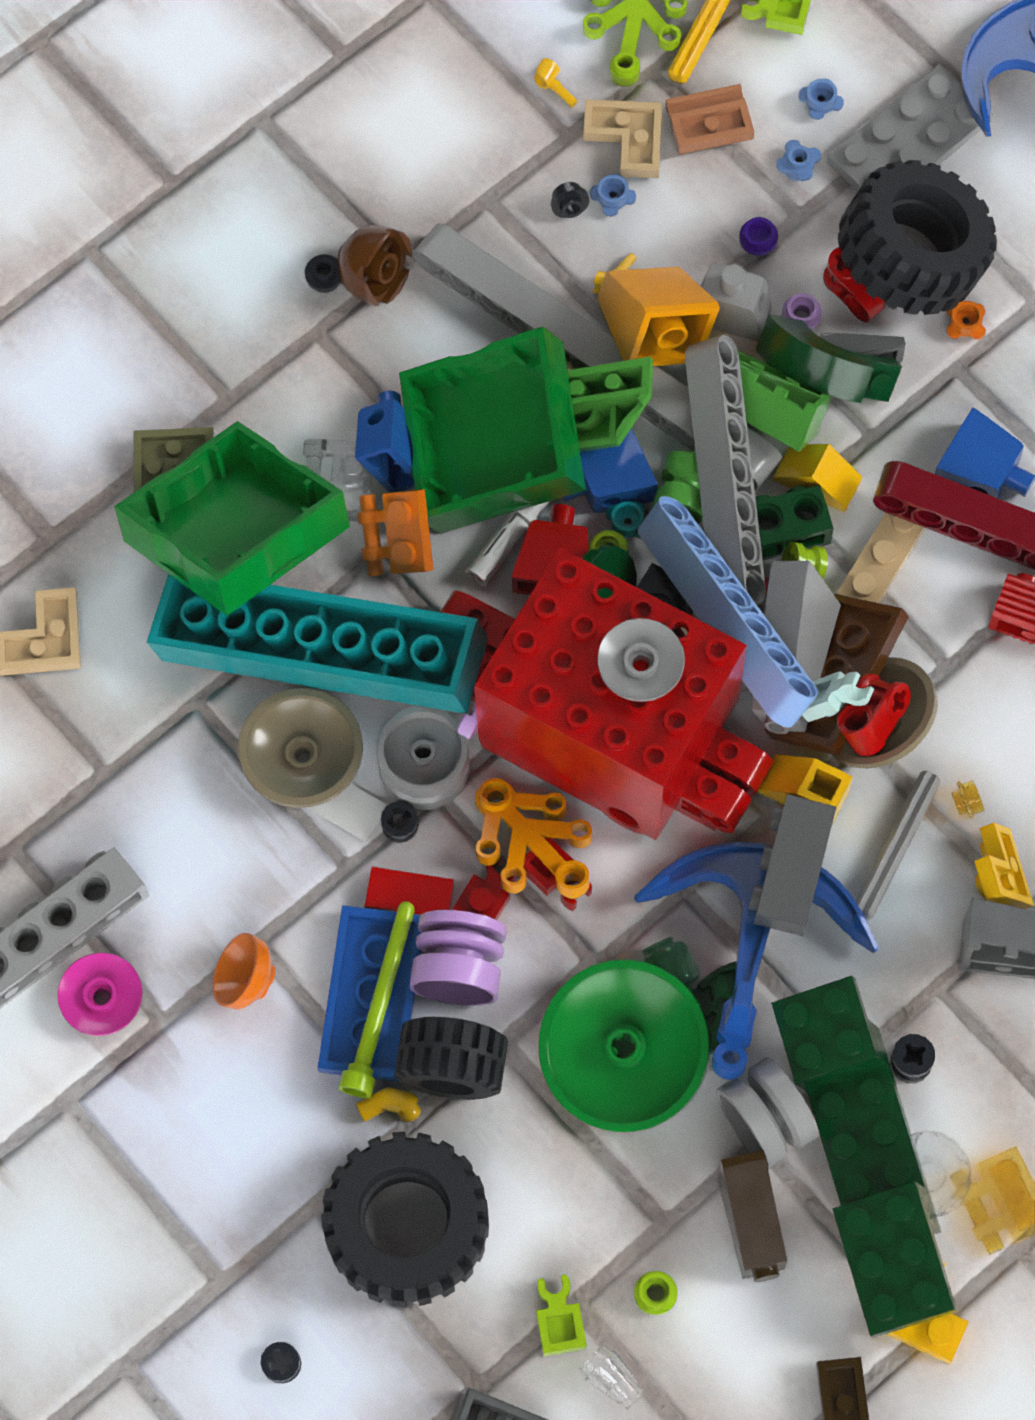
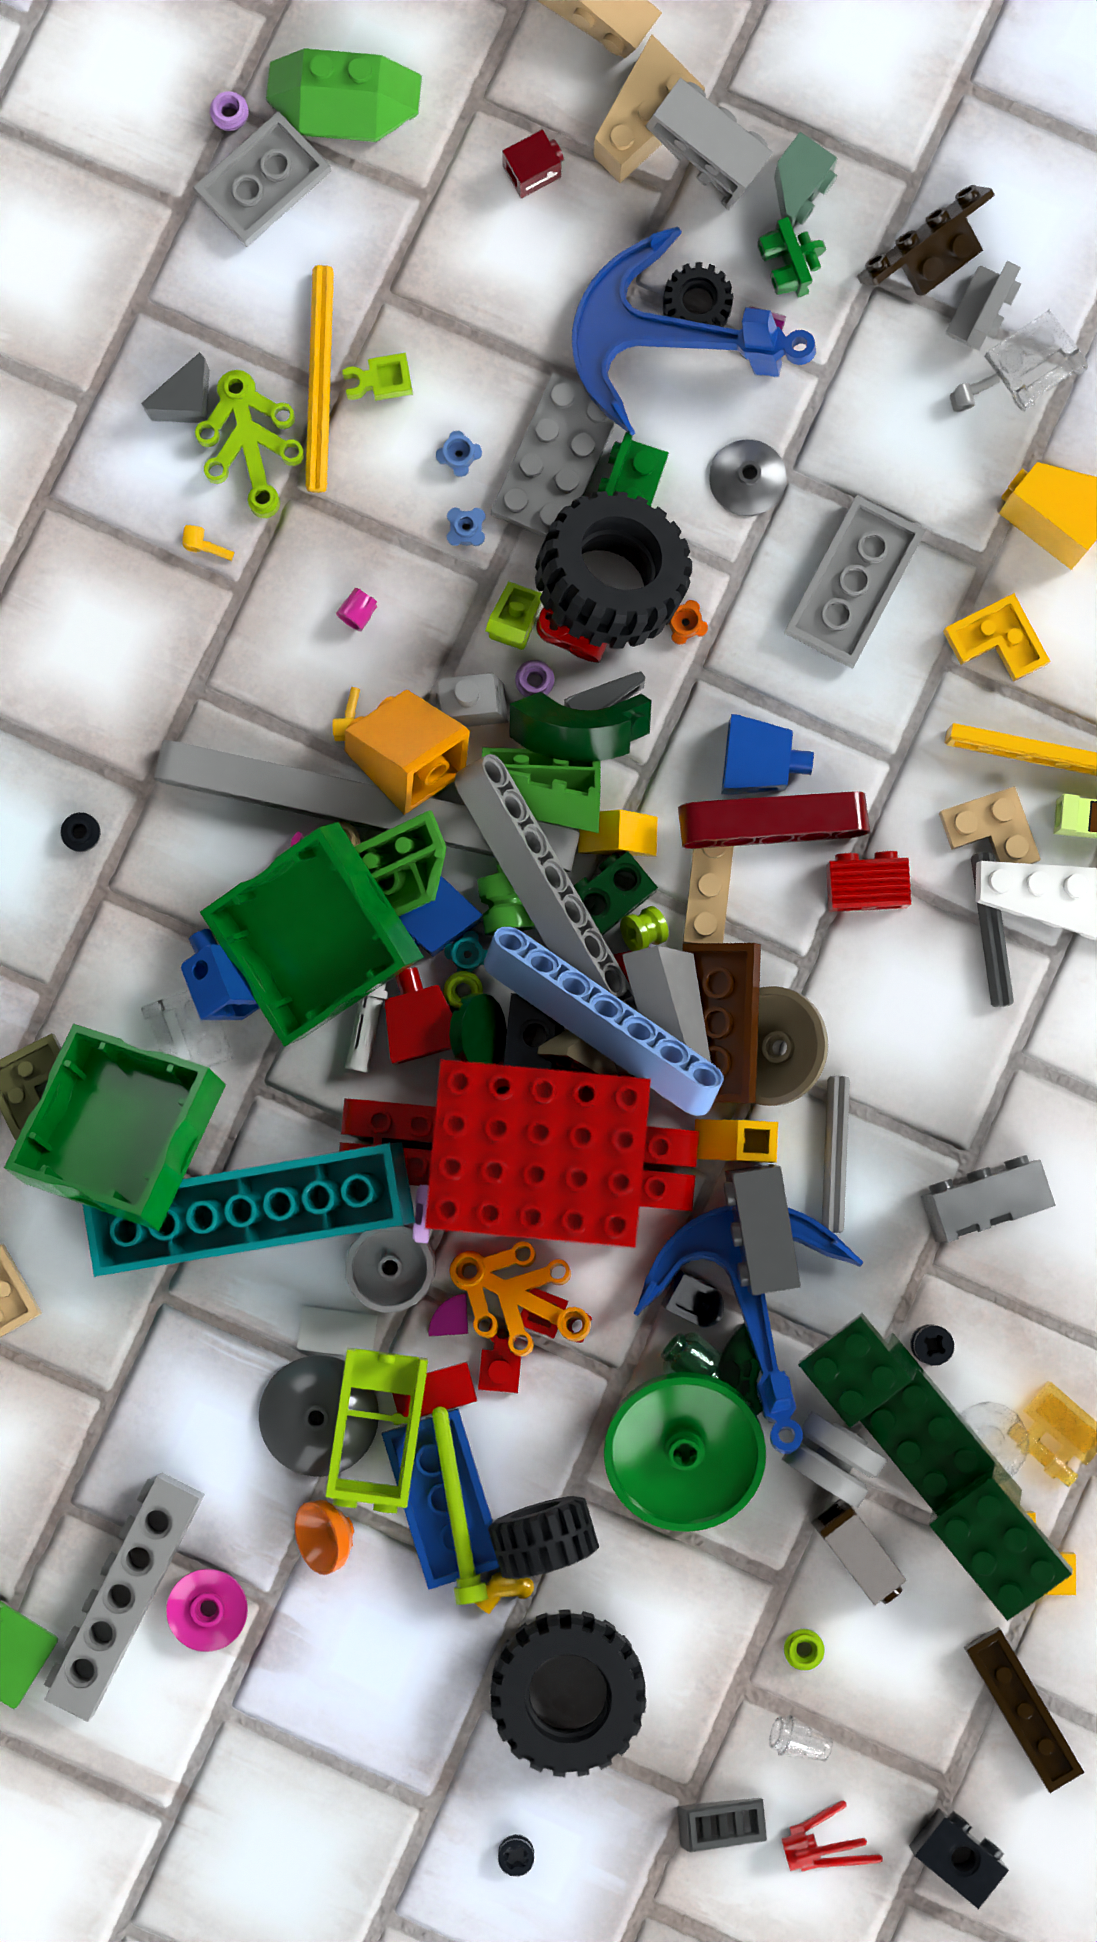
camera: 30 degrees left, 15 degrees up
(294, 724) = (248, 1314): dark tan dish -> none
(295, 895) = (285, 1411): none -> dark grey dish
(367, 846) = (387, 1374): none -> lime door
(374, 263) = (123, 807): reddish brown cylinder -> none
(387, 819) = (381, 1329): black bush -> none
(405, 530) = (276, 1060): orange plate -> none
(457, 834) = (450, 1317): none -> magenta tile
(458, 958) = (506, 1441): lavender wheel -> none
(560, 1323) = (737, 1714): lime plate -> none
(569, 200) = (273, 661): black plate -> none
(612, 184) = (305, 625): medium blue plate -> none
(632, 124) = (297, 557): tan plate -> none
(641, 641) = (572, 1123): light grey dish -> none
(665, 189) = (357, 609): none -> dark pink hose
(698, 916) = (694, 1300): none -> black plate
(709, 119) = (366, 520): nougat plate -> none
(758, 236) = (462, 620): dark purple plate -> none
(805, 251) = (514, 616): none -> lime slope
(834, 692) = (731, 1051): light aqua plate -> none
(871, 724) = (772, 1053): red piece -> none
(968, 799) = (880, 1085): clear yellow plate -> none
(981, 169) = (635, 469): none -> green bracket
(1000, 870) = (947, 1151): yellow plate -> none

